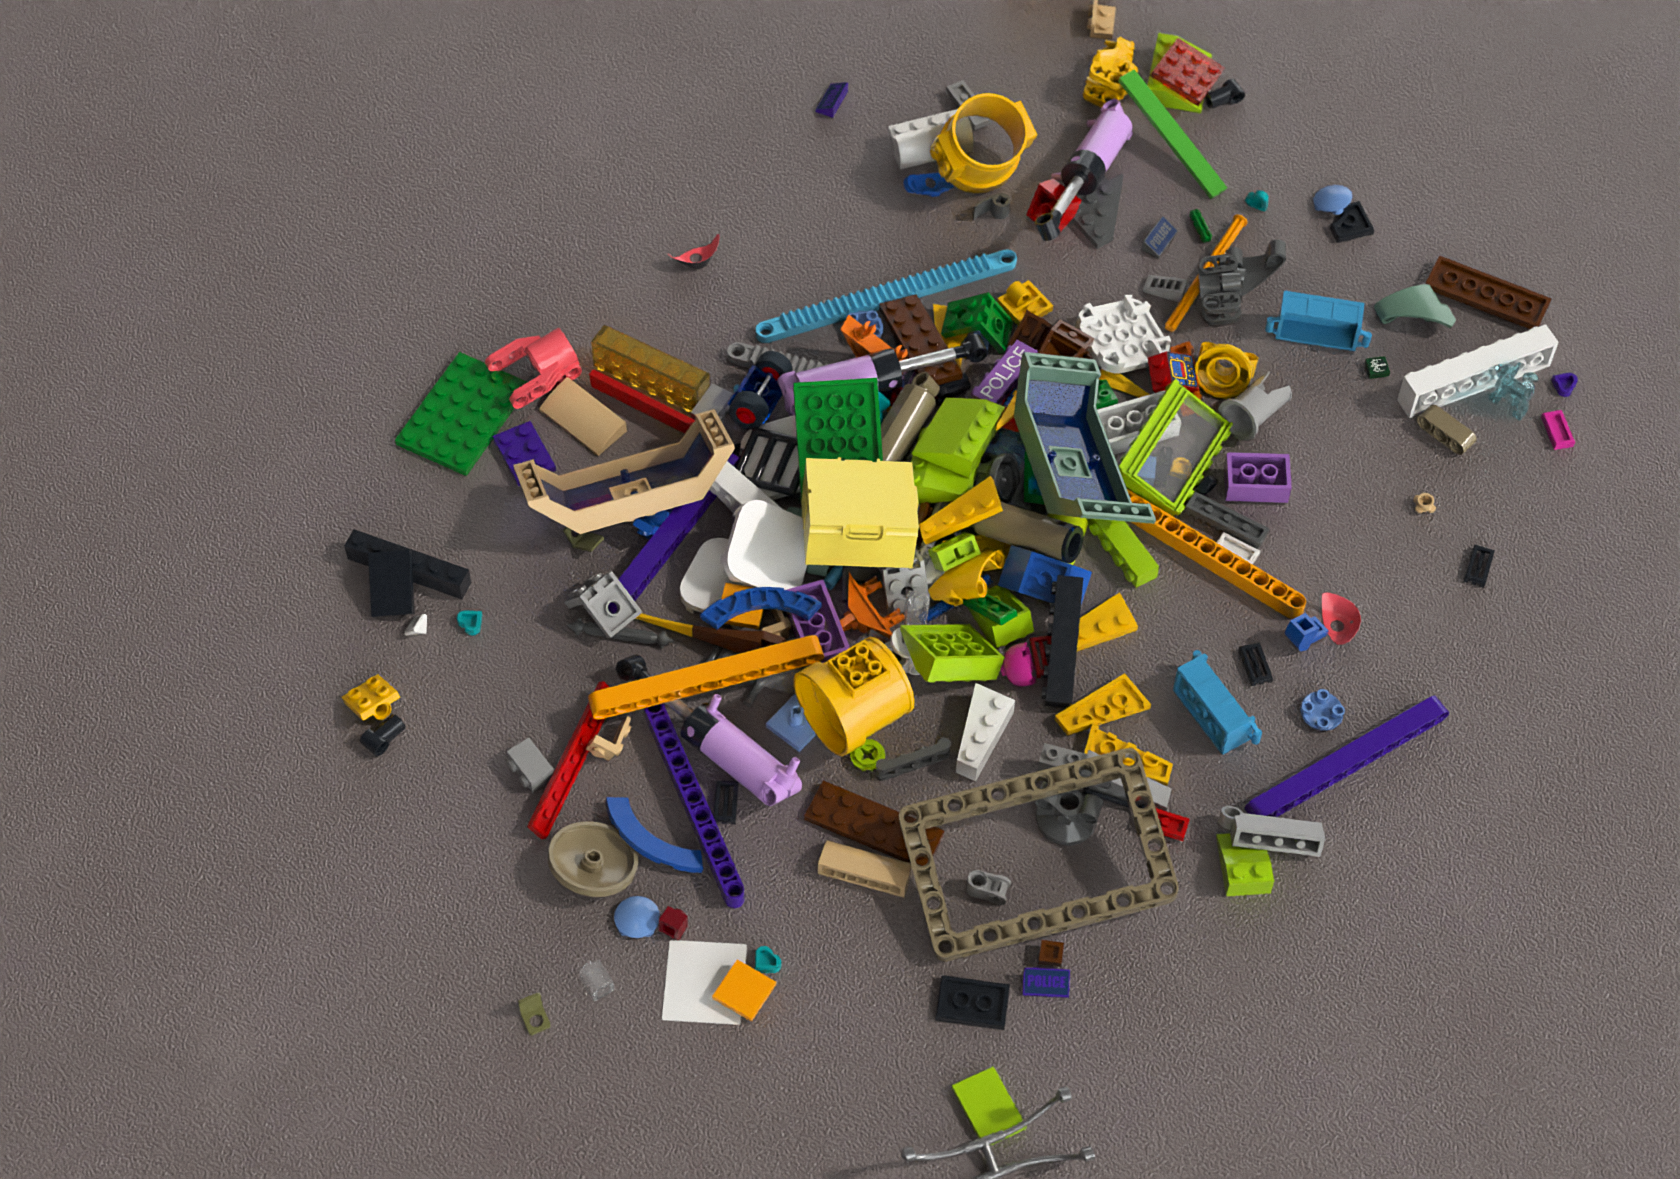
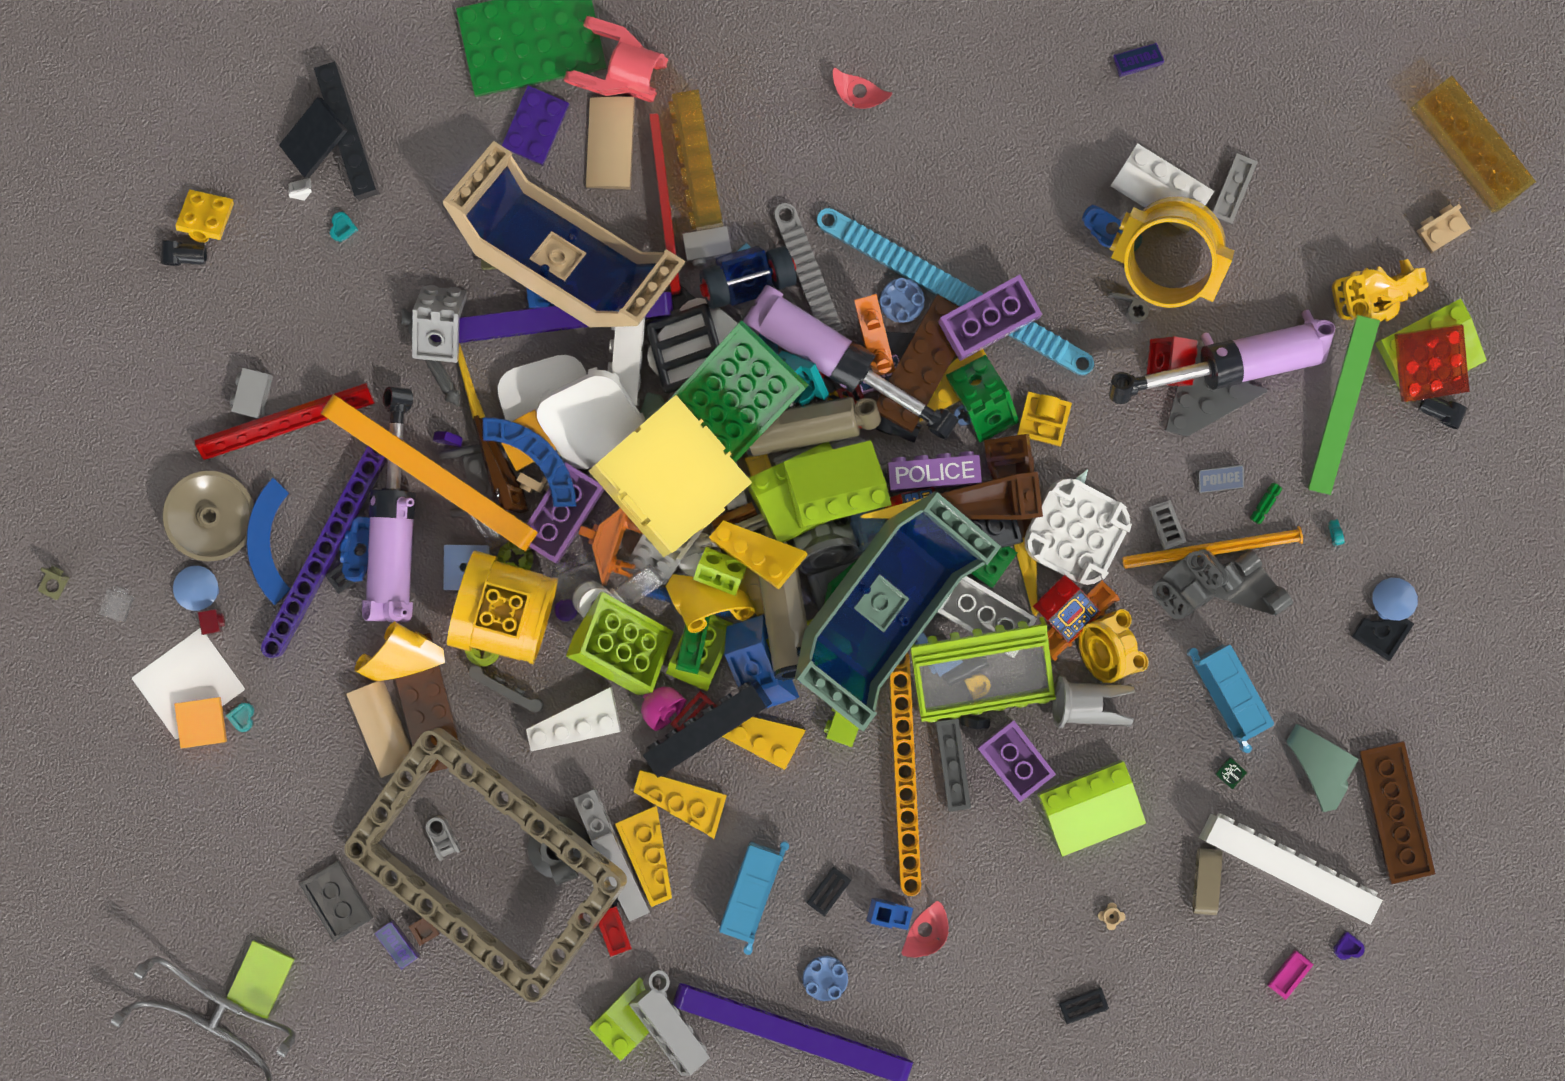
camera: 50 degrees right, 30 degrees up
(605, 749) = (324, 445): tan bracket -> none
(690, 659) = (447, 438): none -> dark purple tile
(705, 770) = (353, 565): none -> blue piece
(825, 801) = (400, 655): none -> yellow panel
(926, 275) = (989, 317): none -> medium lavender brick
(1238, 547) = (931, 793): white tile -> none
(1332, 460) = (1092, 807): none -> slope
(1513, 390) = (1292, 914): clear light blue animal -> none

